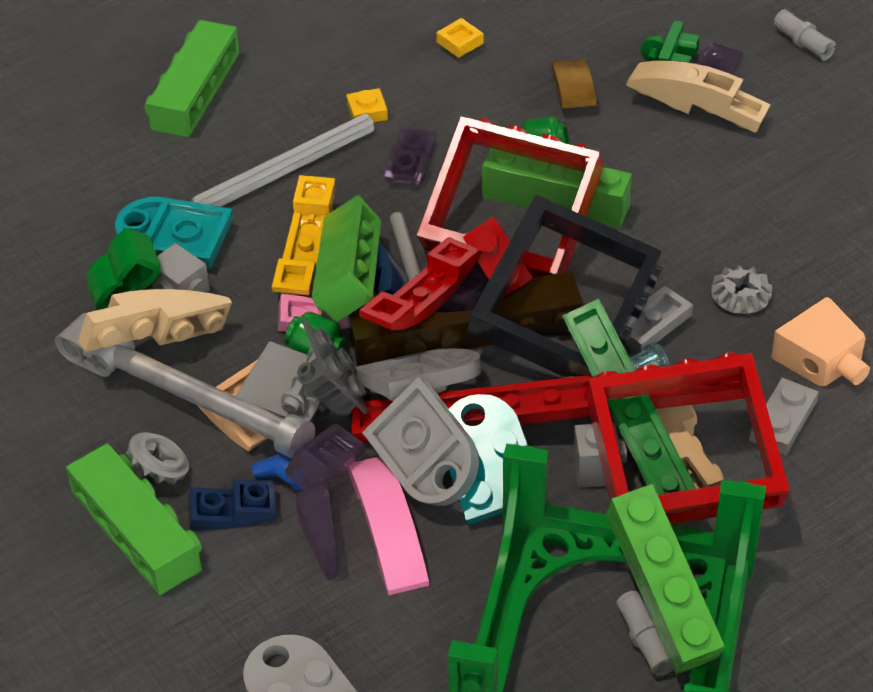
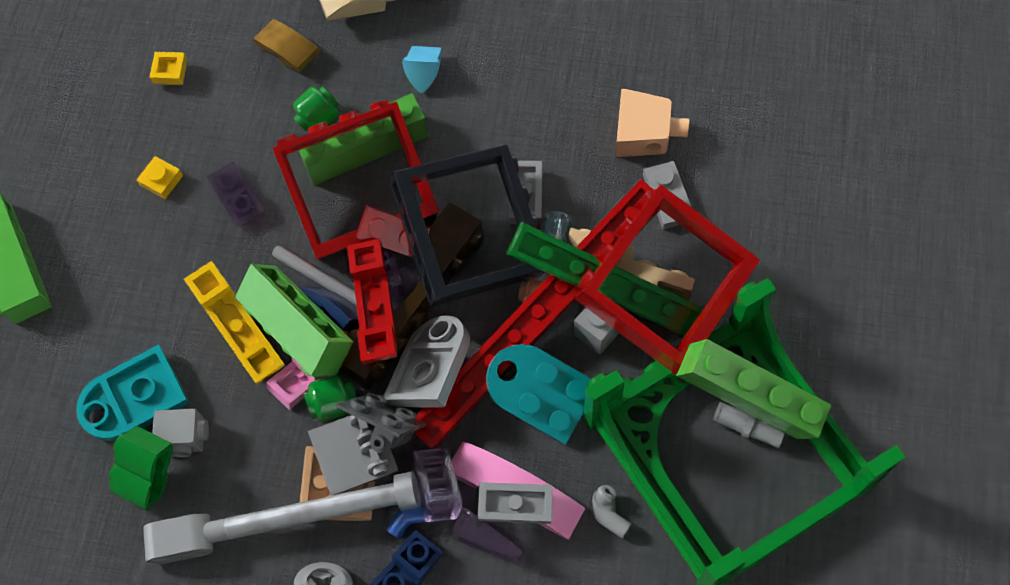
camera: 40 degrees left, 20 degrees up
(158, 313) = (206, 482): tan slope -> none
(286, 162) = (150, 274): light grey axle -> none
(368, 511) = (515, 503): none -> light grey plate
(421, 442) = (495, 420): light grey plate -> none
(443, 596) = (605, 511): none -> light grey arm
(668, 169) = (422, 66): none -> medium azure tile
(749, 299) = (545, 132): light grey gear -> none

